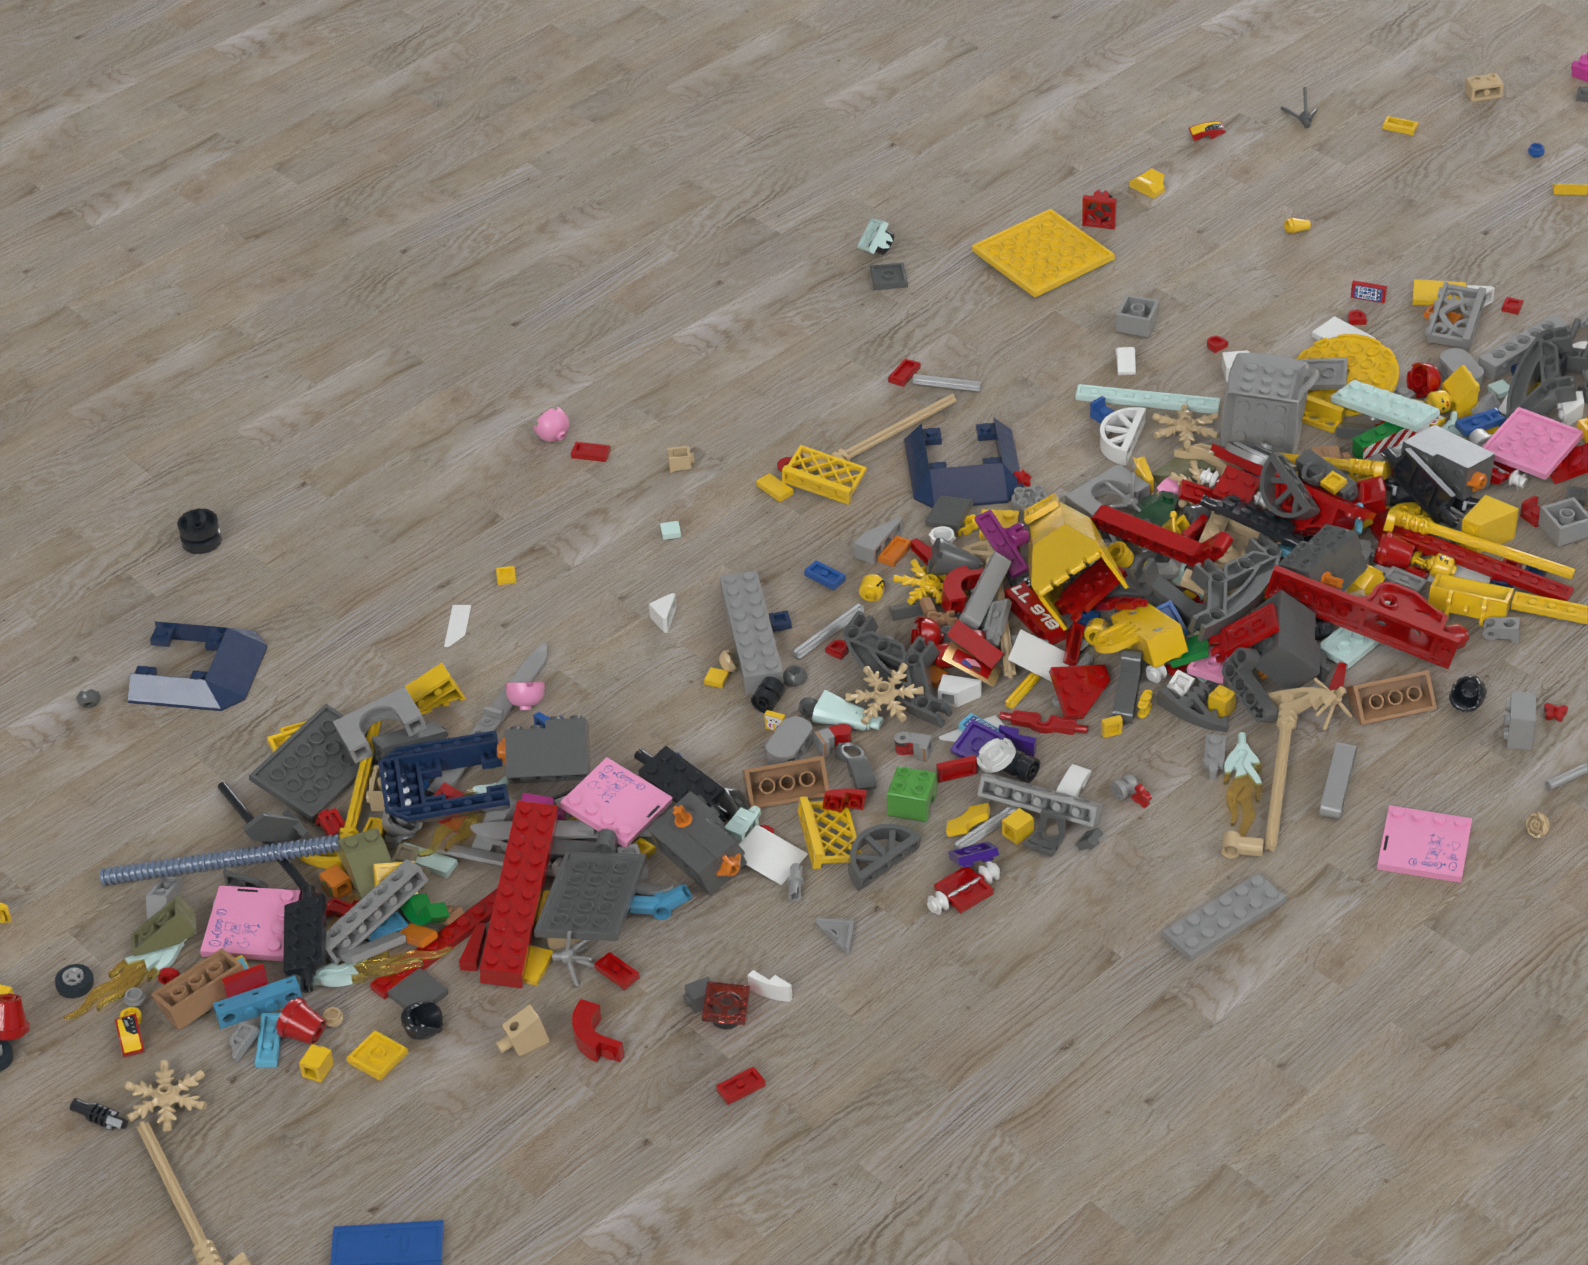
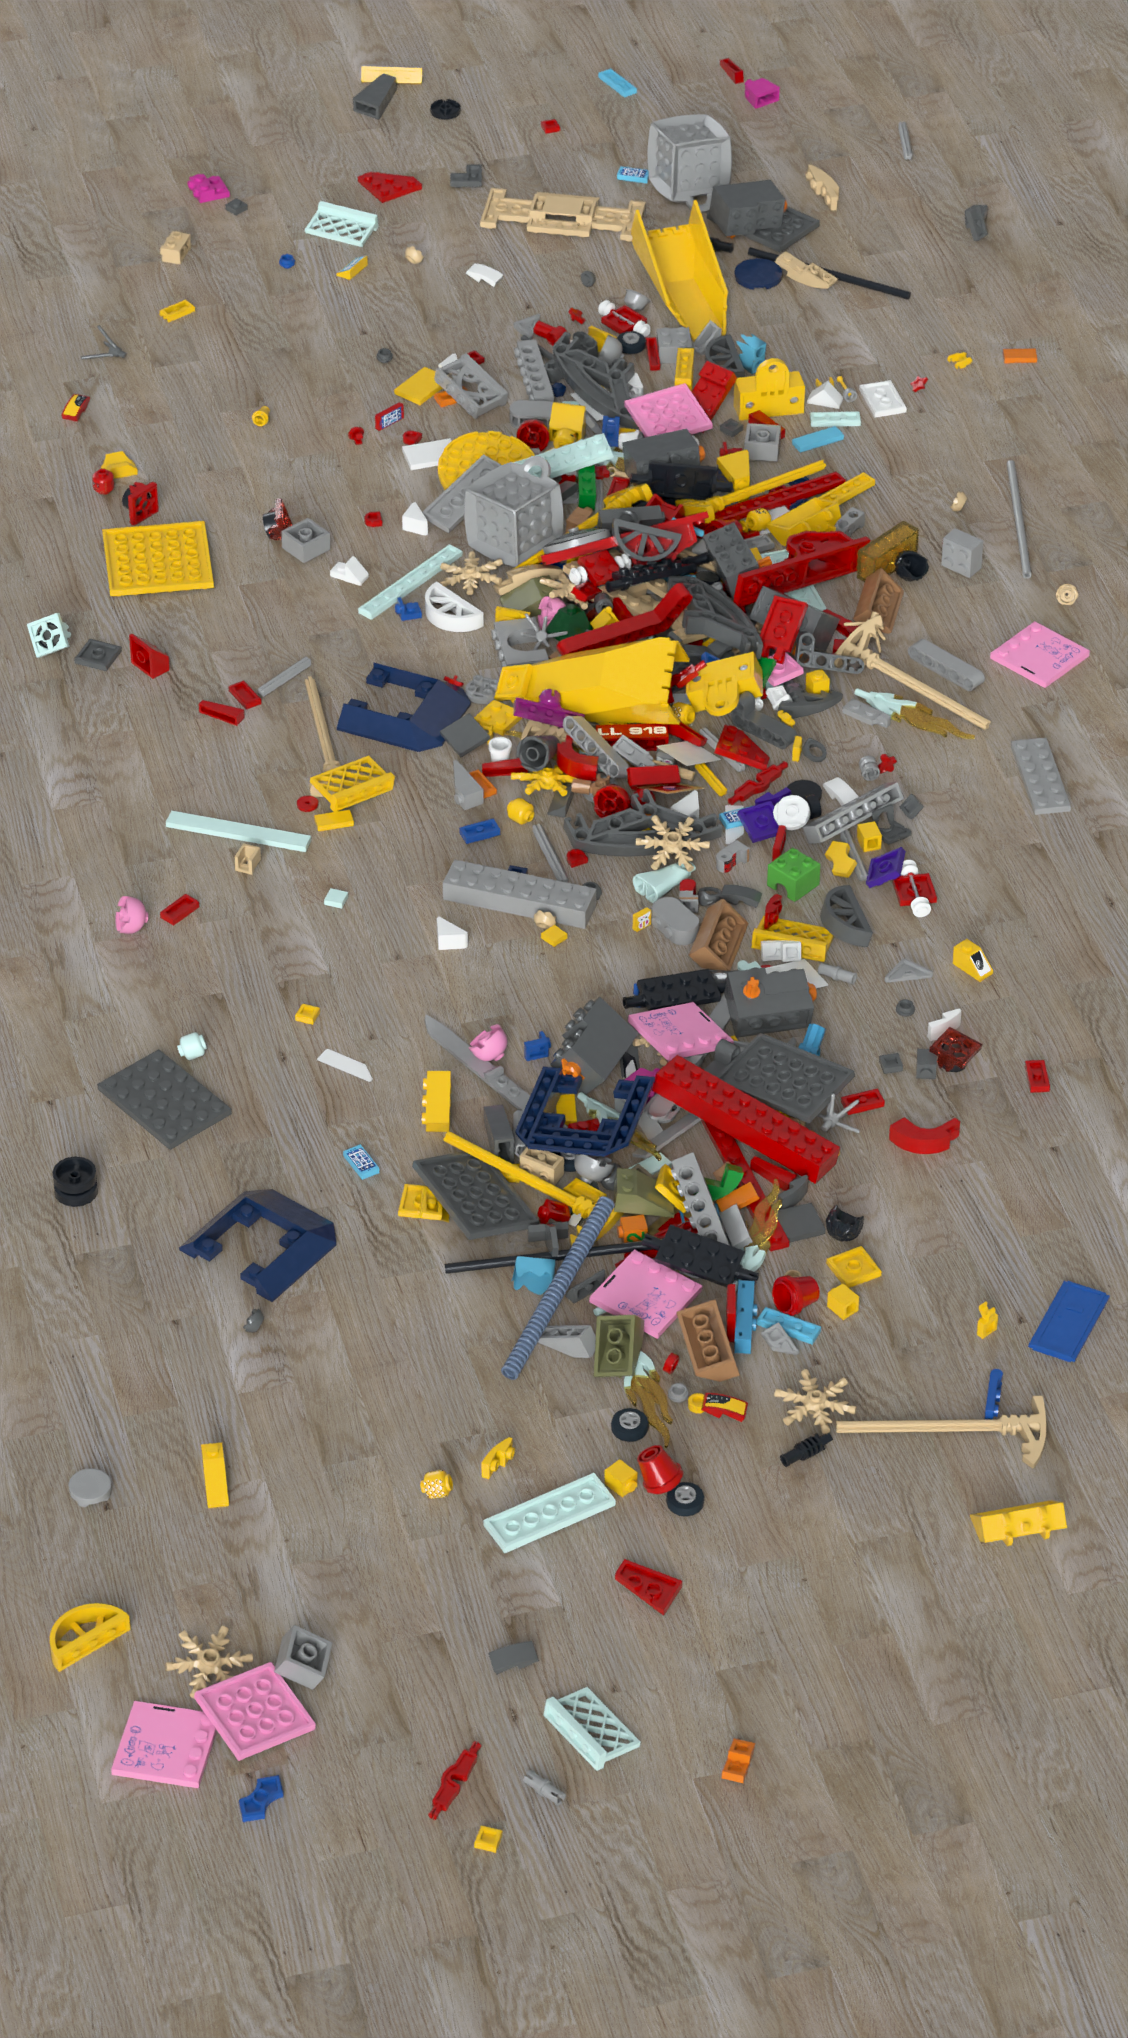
camera: 65 degrees left, 0 degrees up
(237, 835) = (533, 1273): none -> medium azure piece
(238, 1224) = (994, 1394): none -> blue plate
(332, 682) = (361, 1162): none -> tile
(339, 1180) = (988, 1321): none -> yellow plate
(343, 541) = (164, 1099): none -> dark grey plate
(393, 706) = (469, 1111): light grey arch -> none
(413, 526) = (192, 1046): none -> light aqua head
(453, 973) = (796, 1192): none -> dark grey slope
(479, 777) = (567, 1106): none -> yellow tile
(523, 1032) = (901, 1176): tan torso -> none
(687, 969) = (890, 1063): none -> dark grey plate
(718, 442) = (238, 831): none -> light aqua tile
(767, 694) = (608, 911): black wheel -> none
(779, 950) = (905, 1008): none -> dark grey plate
(796, 828) = (781, 950): none -> white slope
(807, 706) = (639, 895): dark grey tile -> none
(868, 372) = (222, 712): none -> red piece
(882, 970) = (971, 960): none -> yellow slope
(900, 297) = (148, 657): none -> red slope
(1053, 758) = (805, 788): none -> black tile
(1114, 182) = (103, 481): none -> red head
(1126, 731) = (813, 743): none -> dark grey piece
(1148, 287) = (276, 520): none -> clear red piece
(1234, 845) = (975, 739): tan piece -> none
(1322, 285) = (356, 434): none -> red plate
(1333, 482) = (649, 515): yellow tile -> none
(1452, 661) = (885, 549): none -> clear yellow brick
(1458, 255) = (384, 355): none -> dark grey plate

